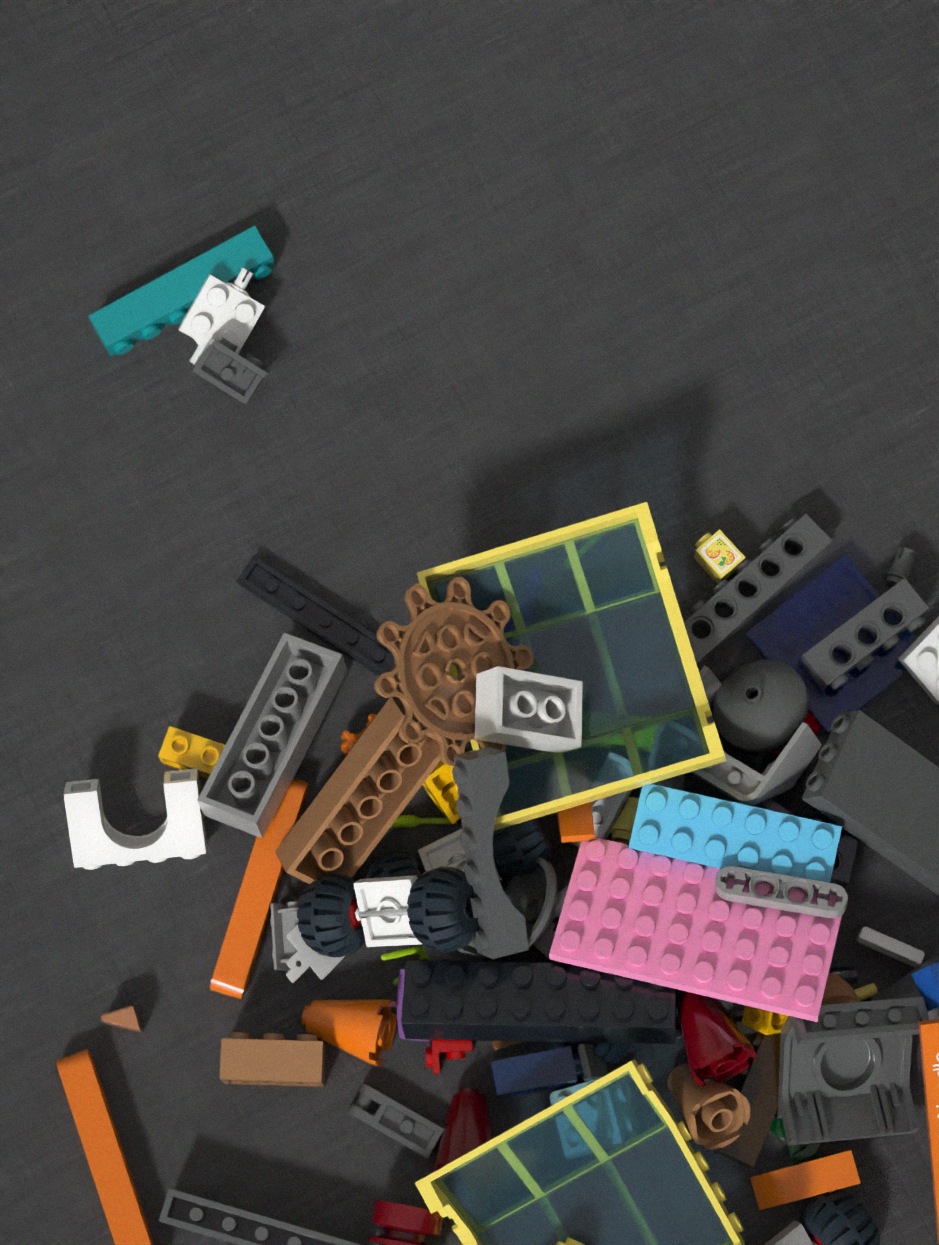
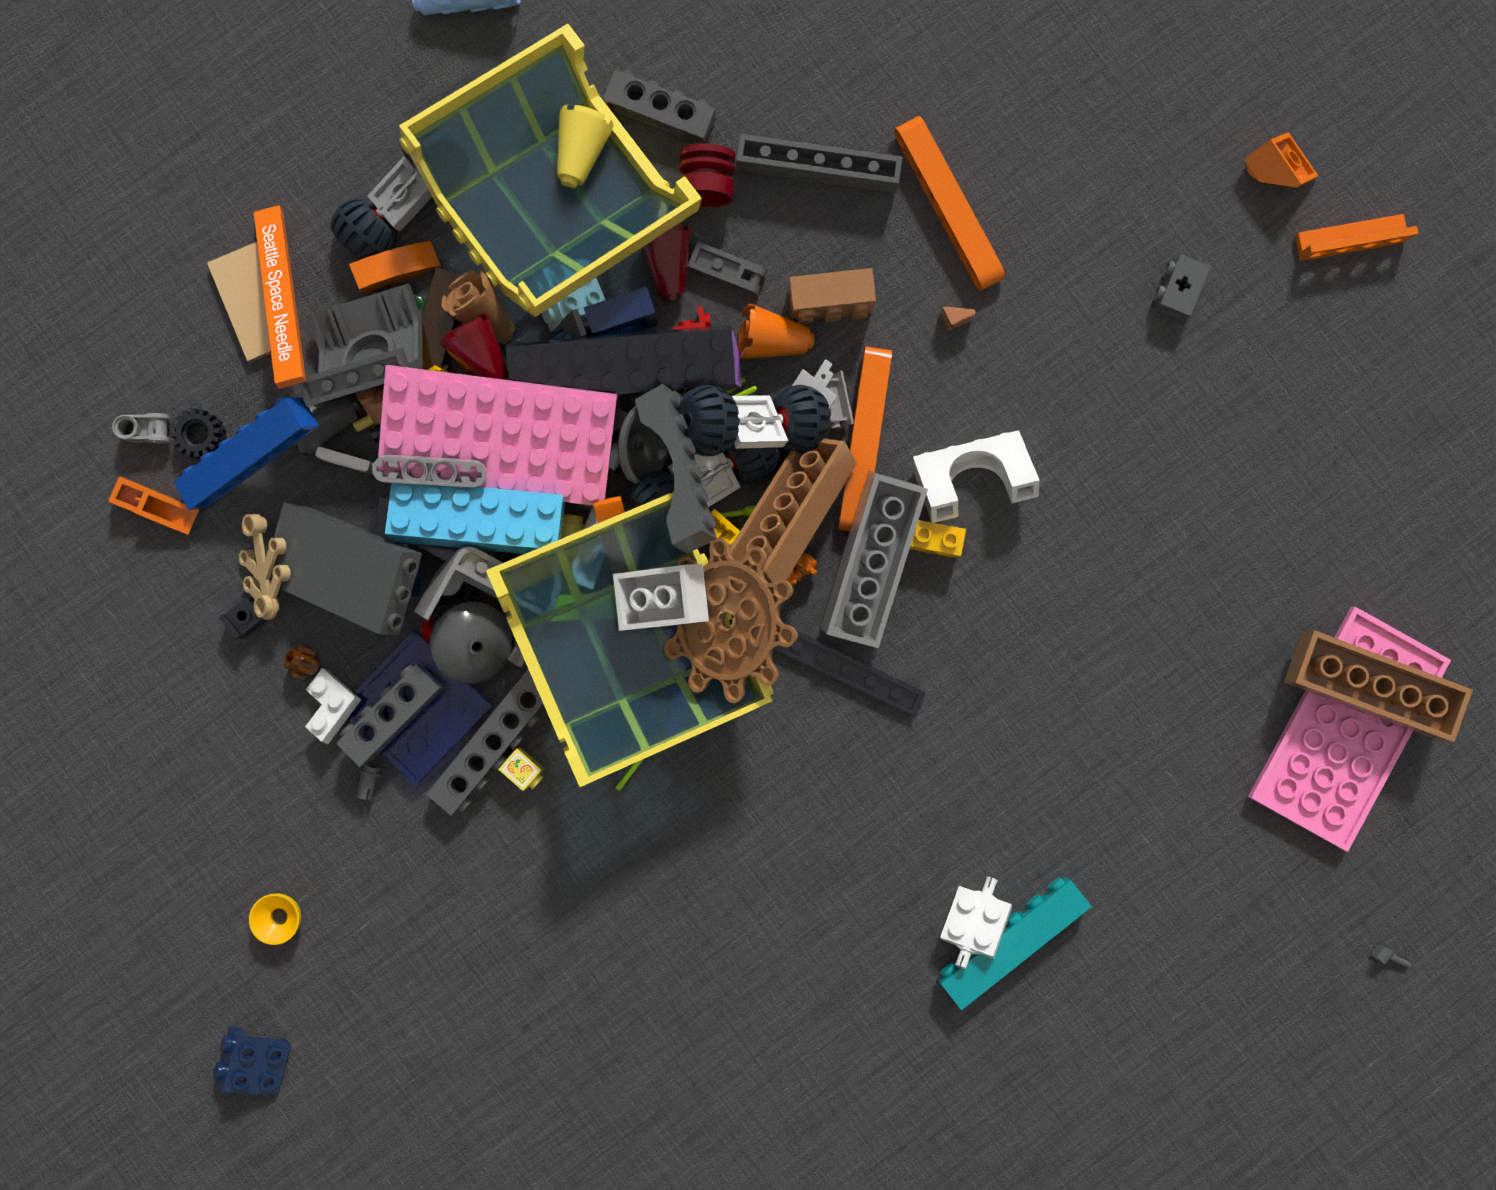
camera: 170 degrees right, 10 degrees up
(229, 370) = (961, 874): dark grey bracket -> none

